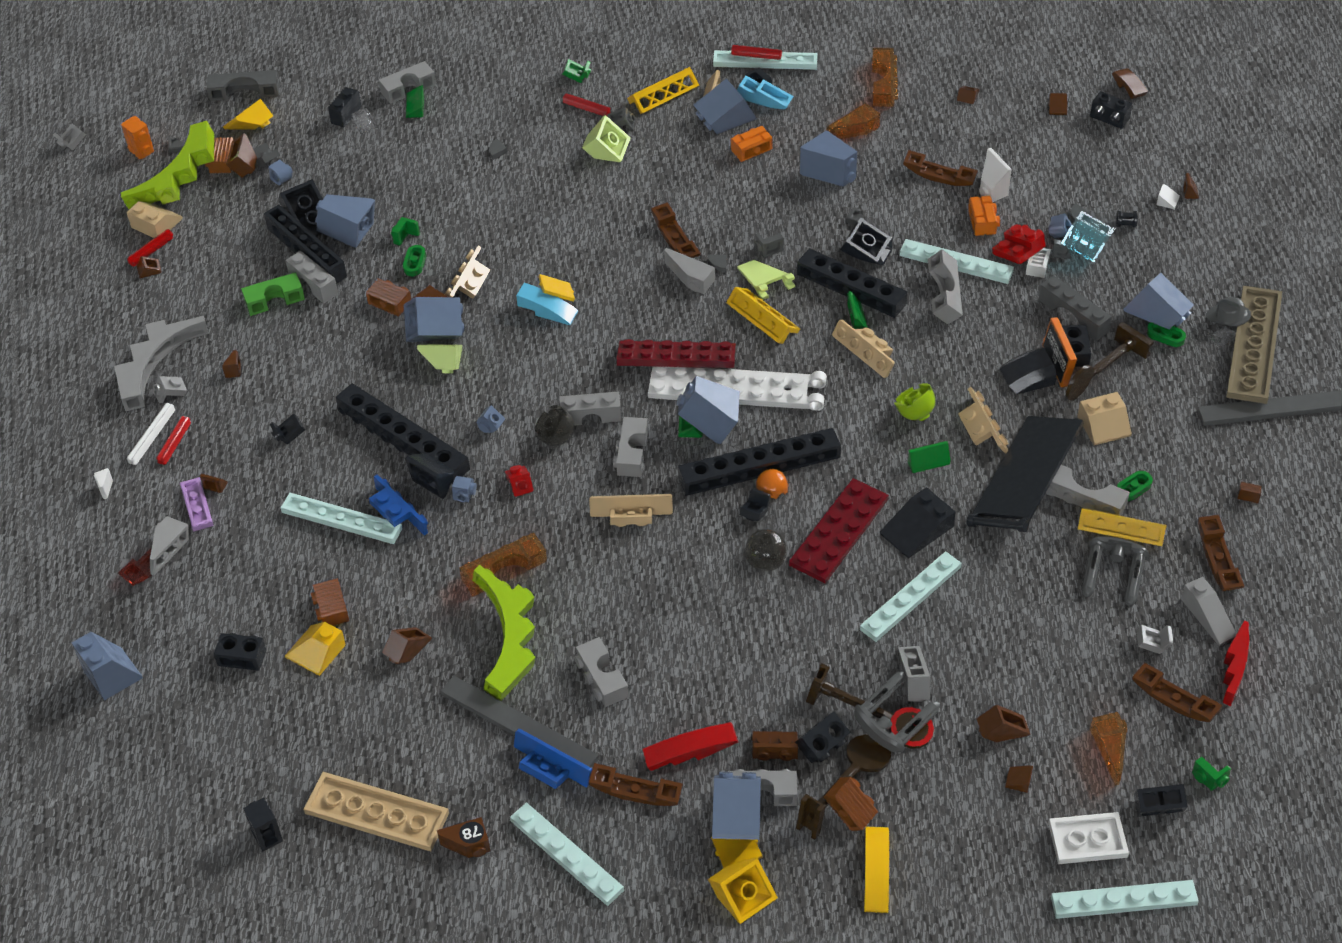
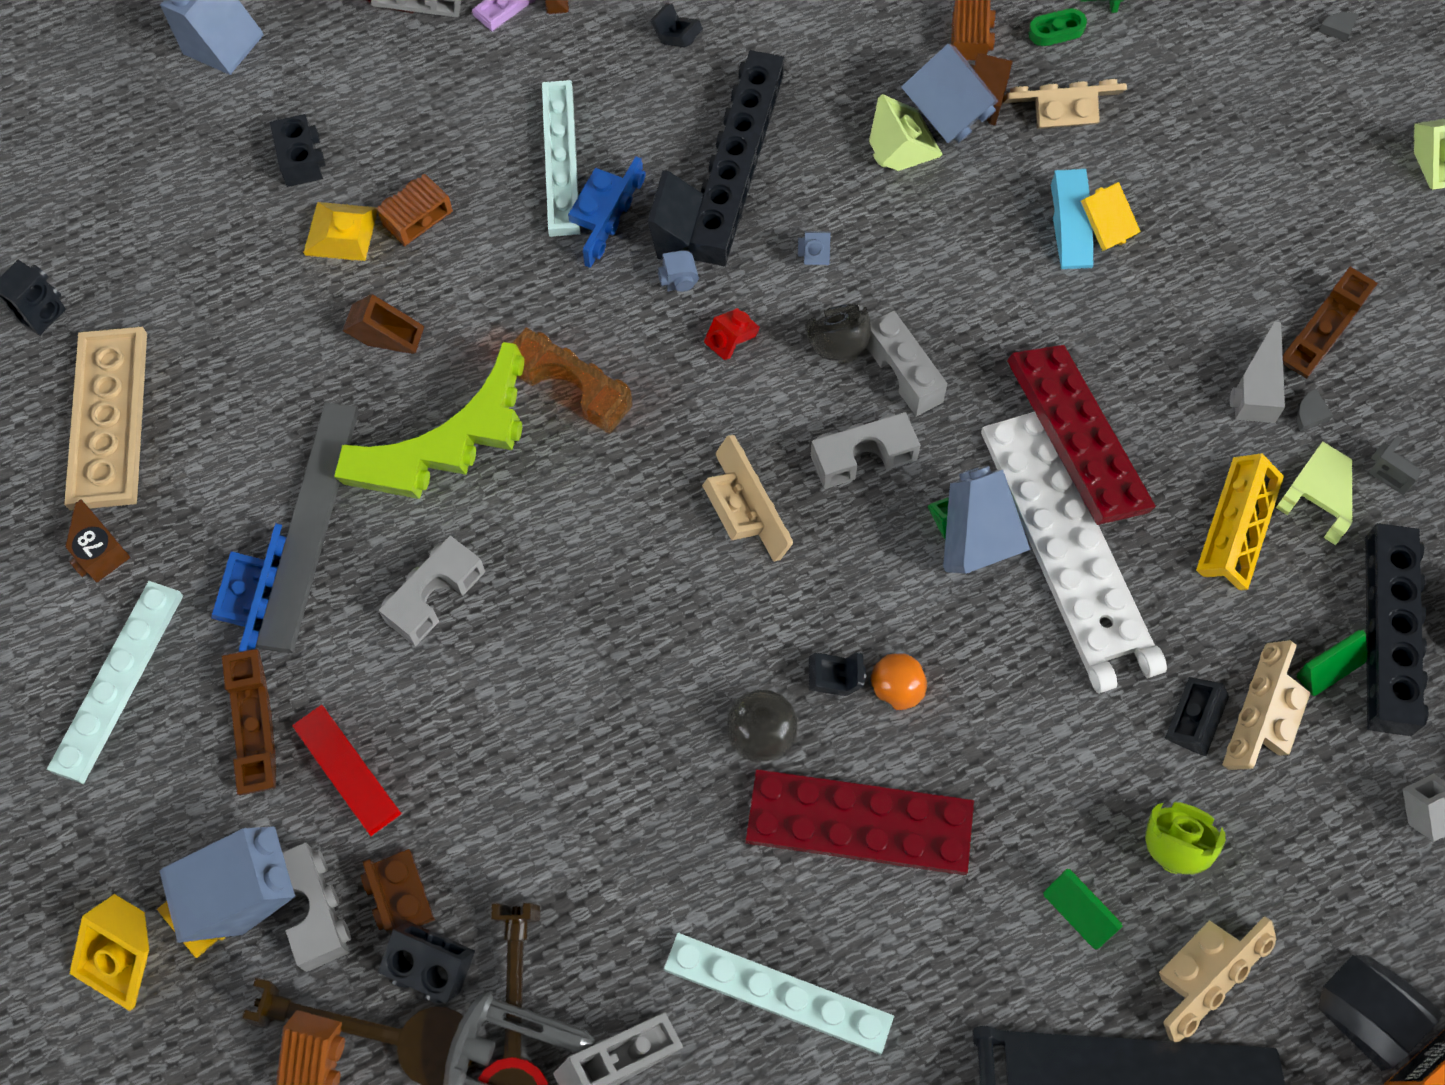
camera: 65 degrees right, 15 degrees up
(751, 462) = (1010, 737): black brick -> none
(854, 375) = (1198, 715): none -> black slope
(919, 523) = (928, 946): black slope -> none

